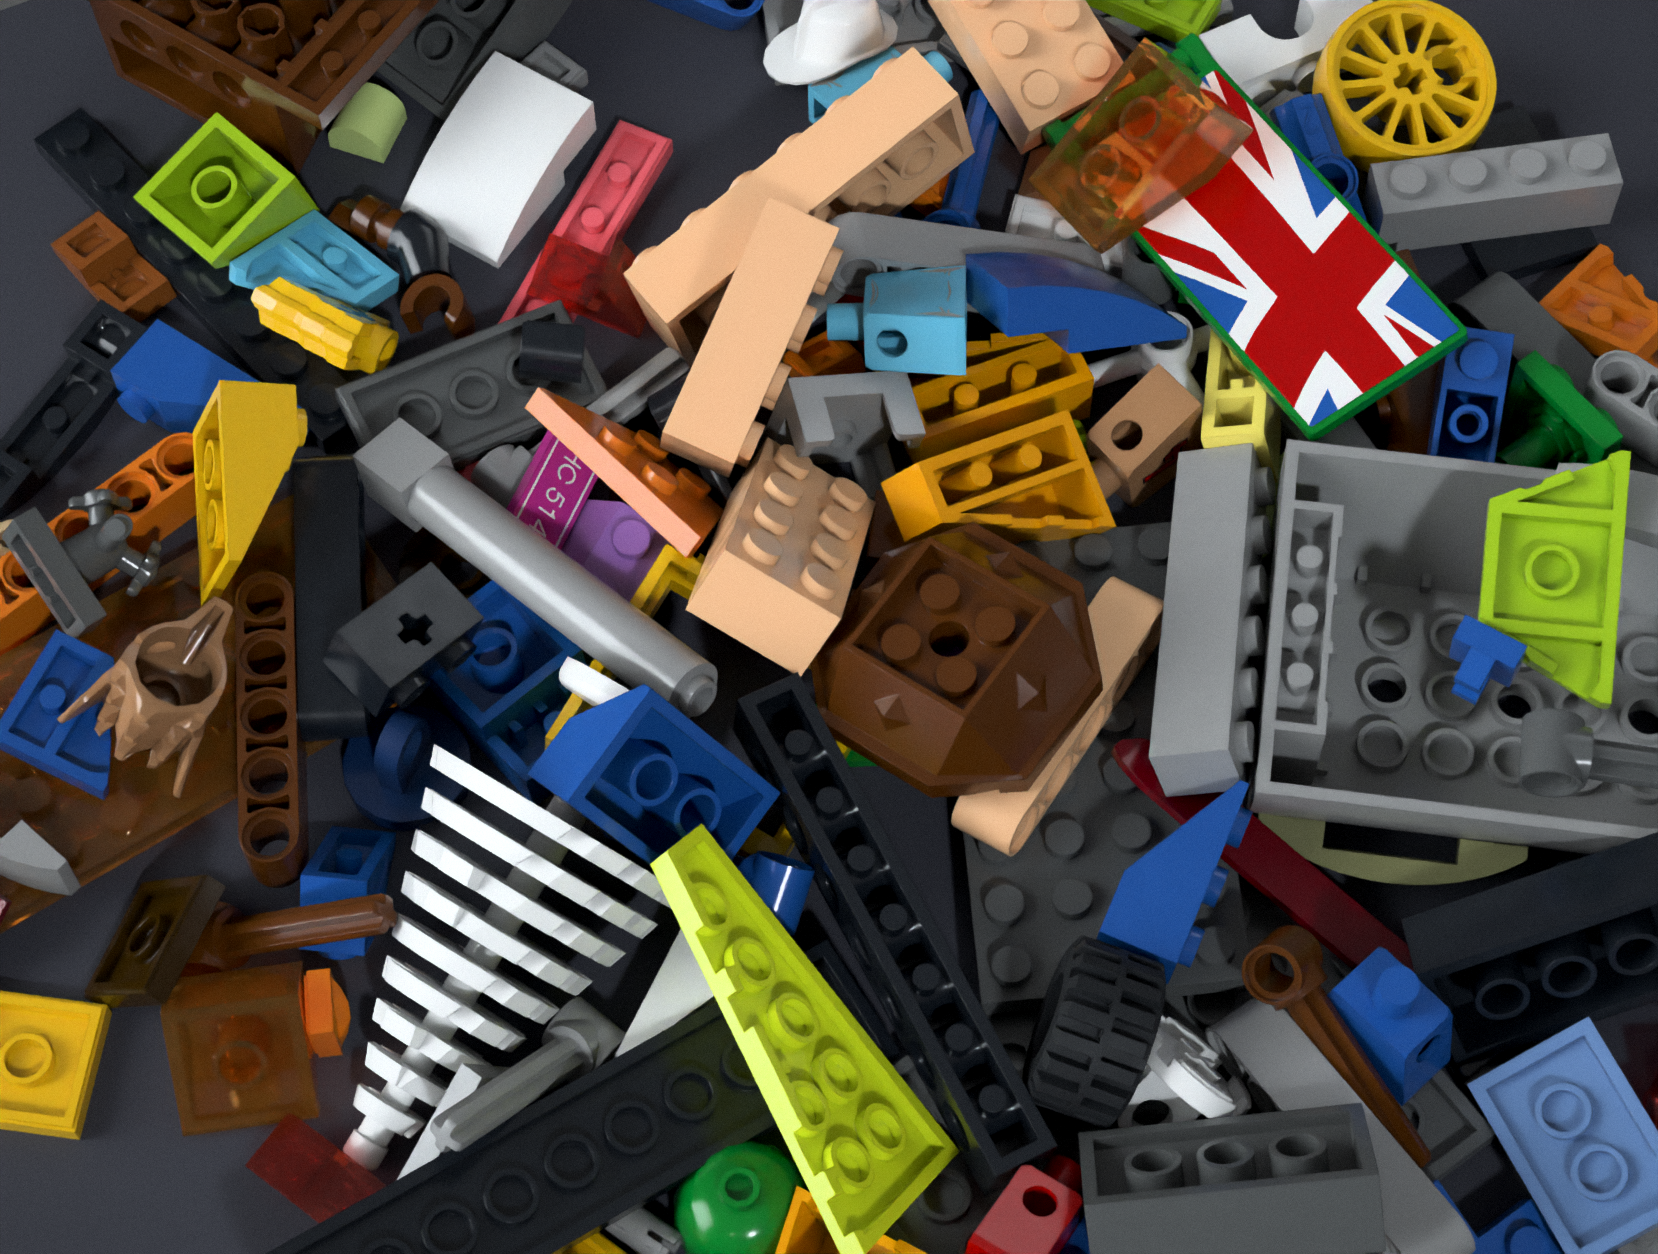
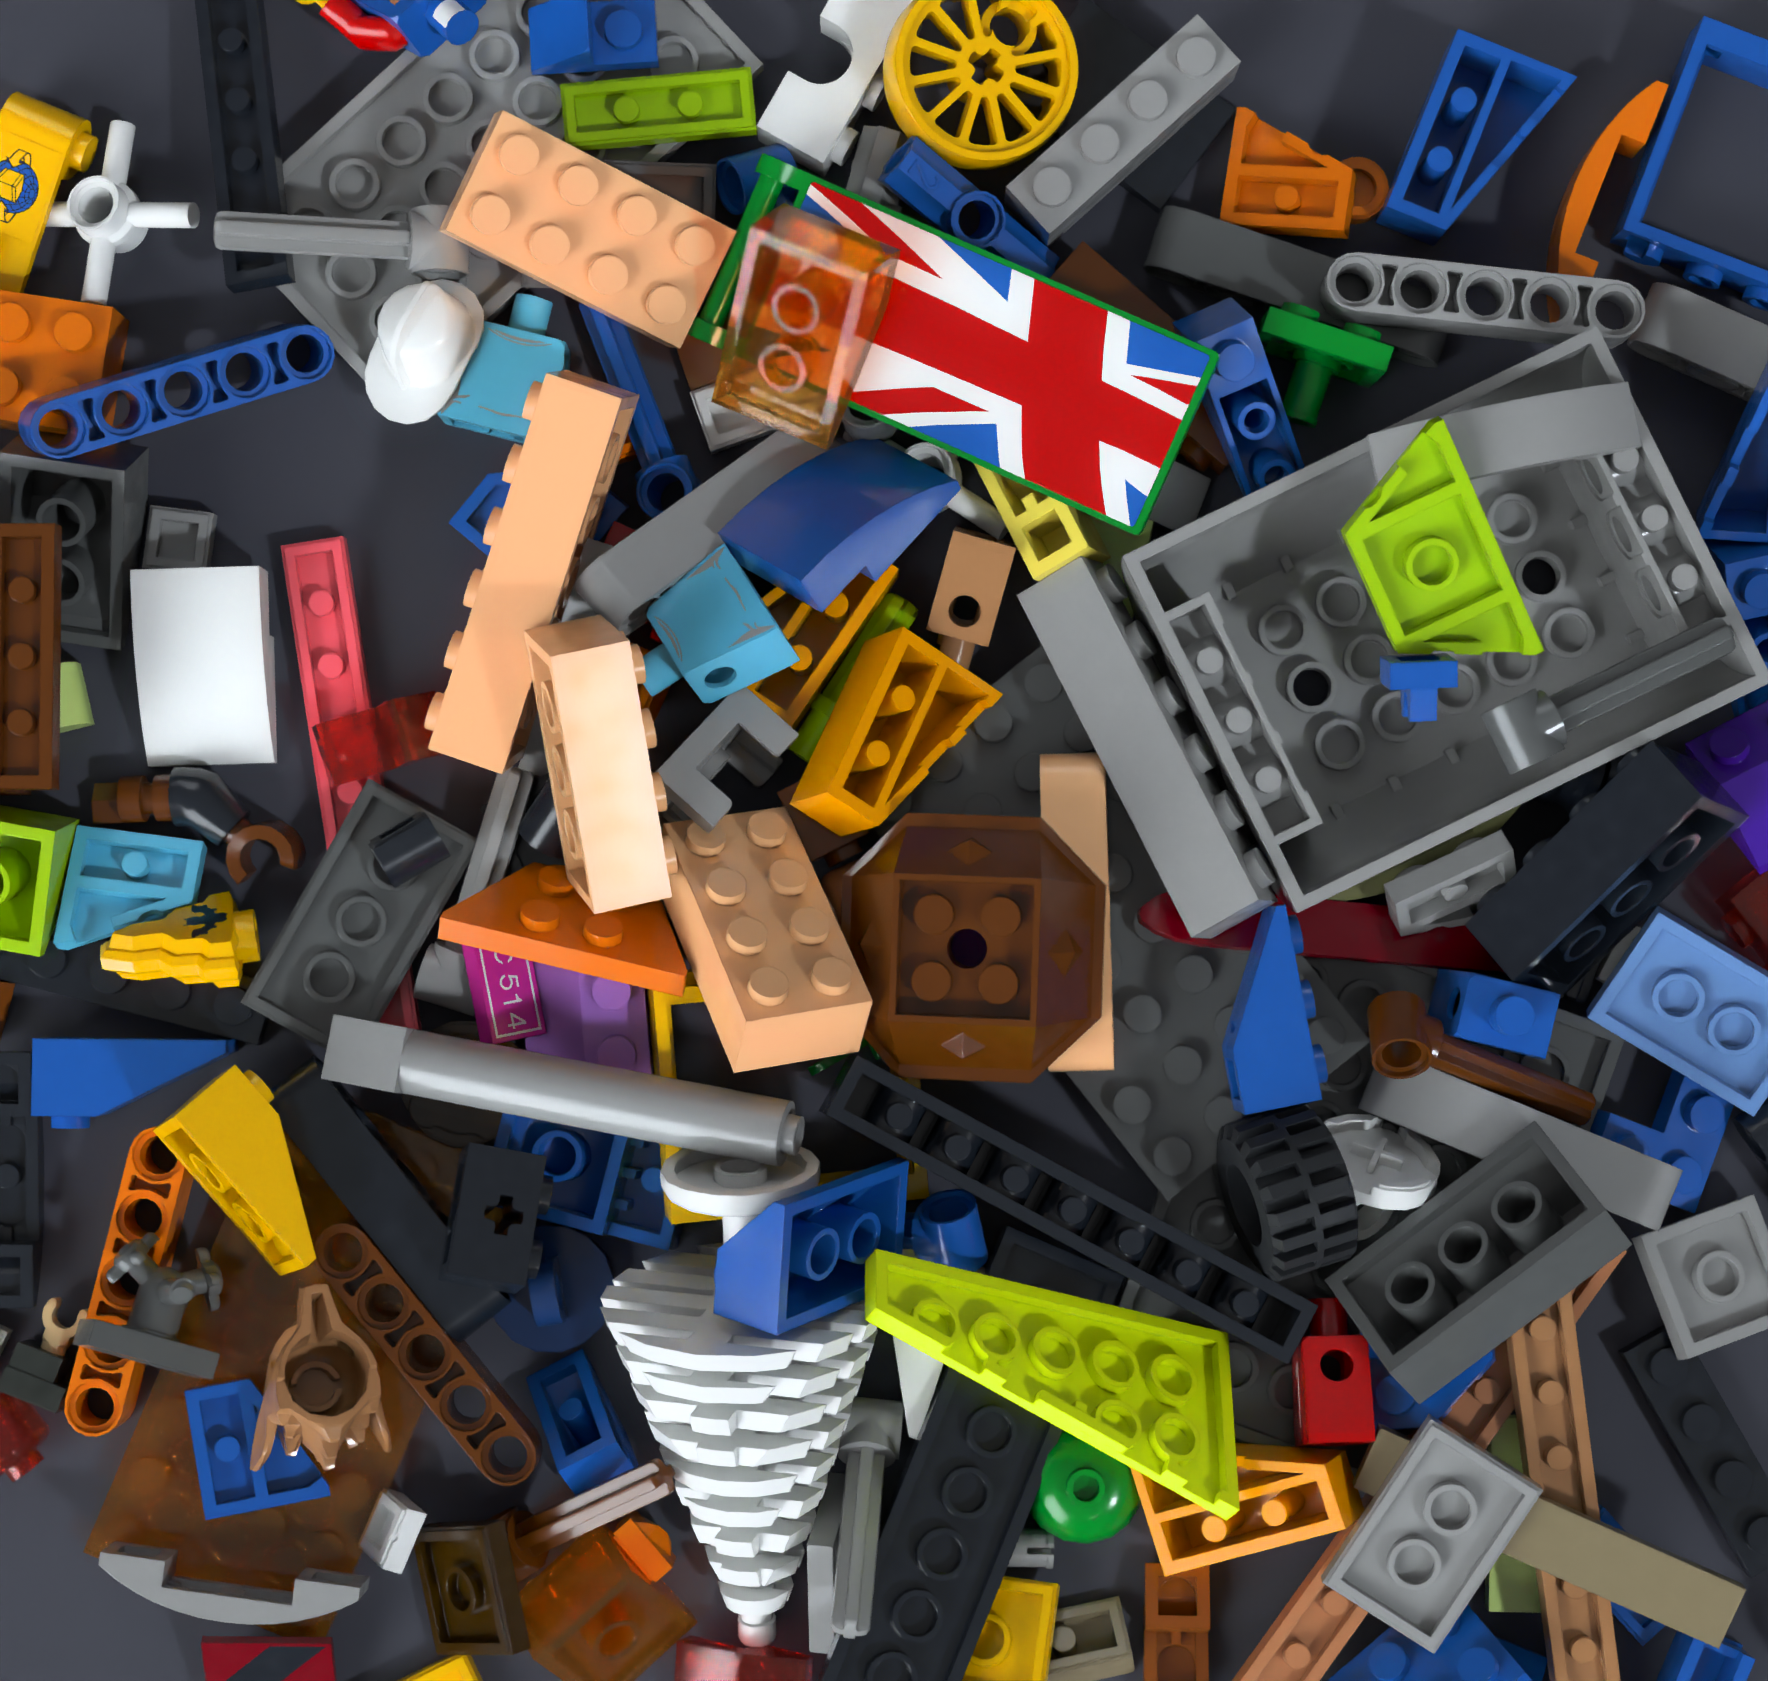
camera: 35 degrees left, 25 degrees up
(129, 864) = (393, 1531): none -> white tile
(1391, 885) = (1449, 886): none -> light grey wing

